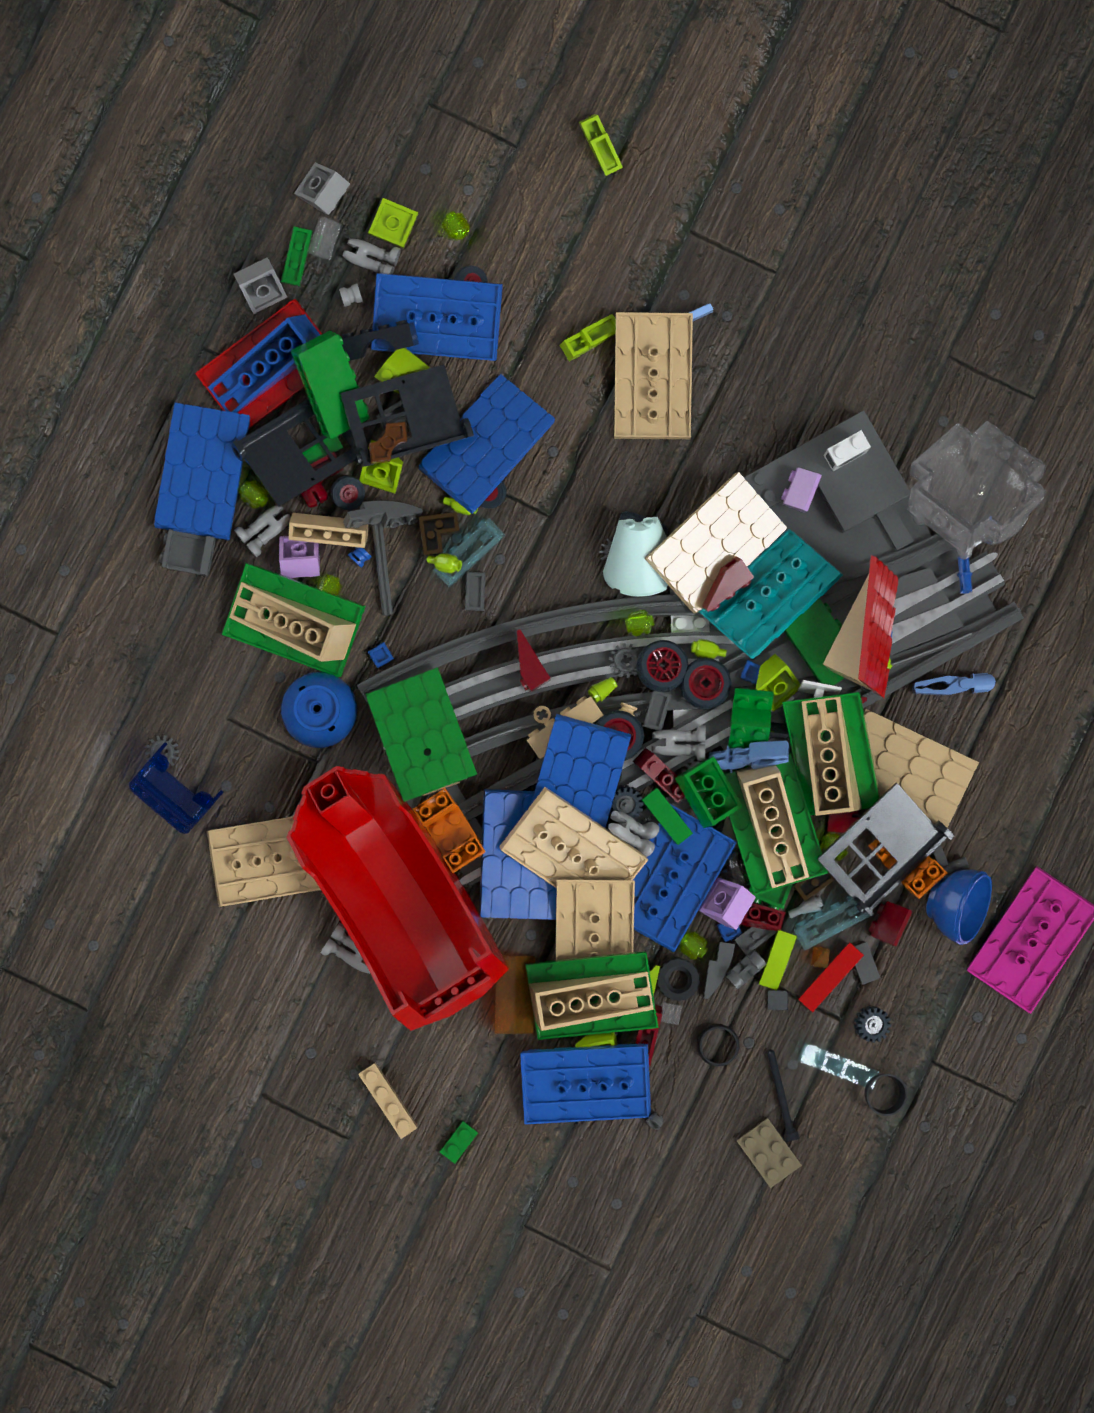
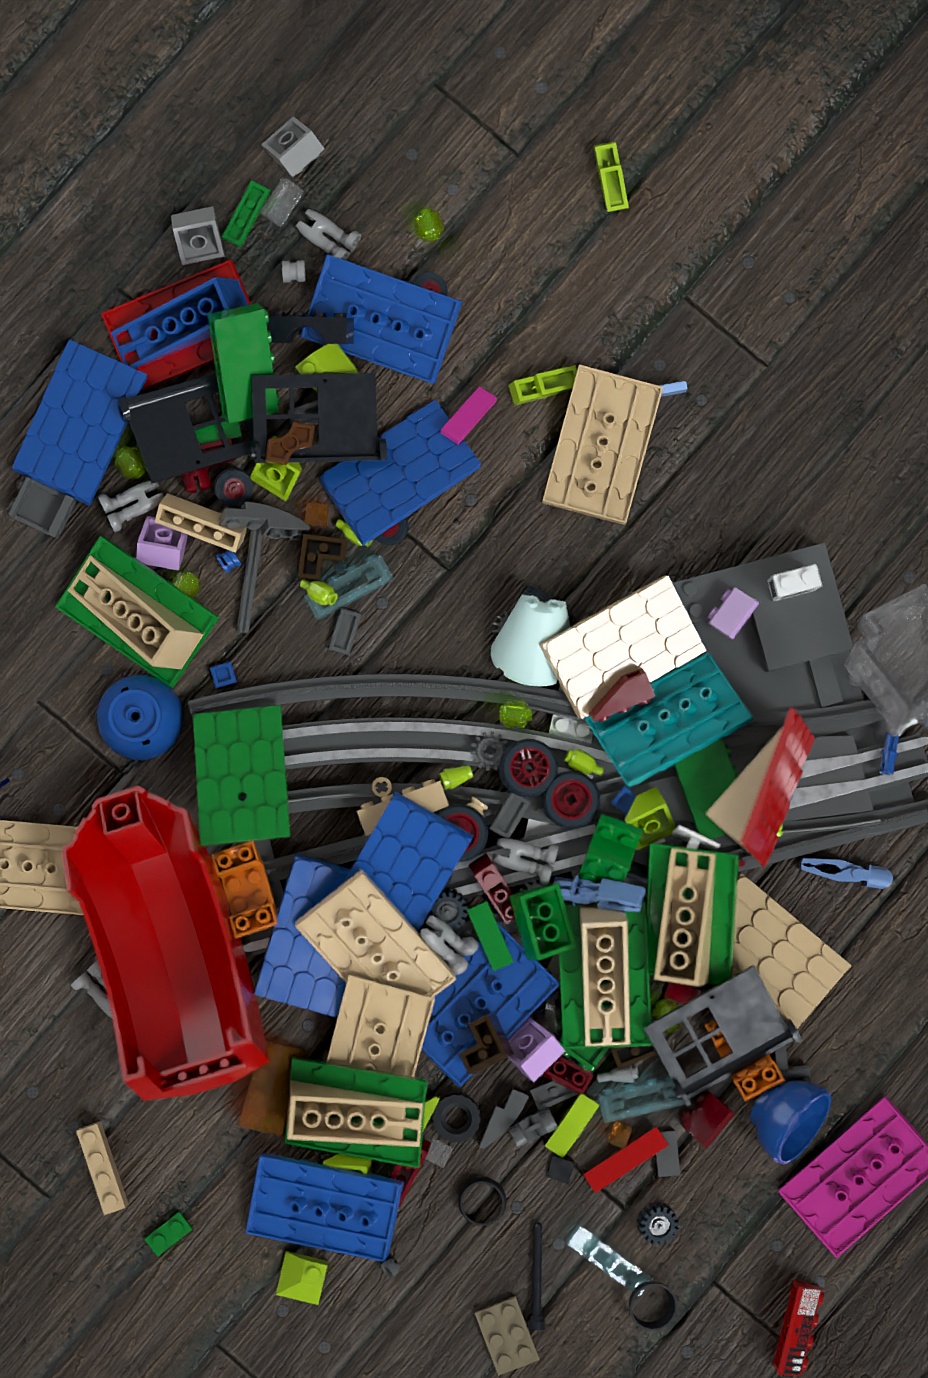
camera: 25 degrees right, 0 degrees up
(393, 223) = (361, 204): lime plate -> none
(425, 498) = (317, 514): none -> clear orange slope
(531, 669) = (381, 730): dark red slope -> none
(532, 379) = (468, 415): none -> dark pink tile
(582, 1150) = (302, 1277): none -> lime slope
(693, 909) = (491, 1045): none -> dark brown brick
(693, 945) = (483, 1085): clear neon green head -> none
(728, 933) = (524, 1082): blue tile -> none
(1013, 1080) = (797, 1328): none -> slope

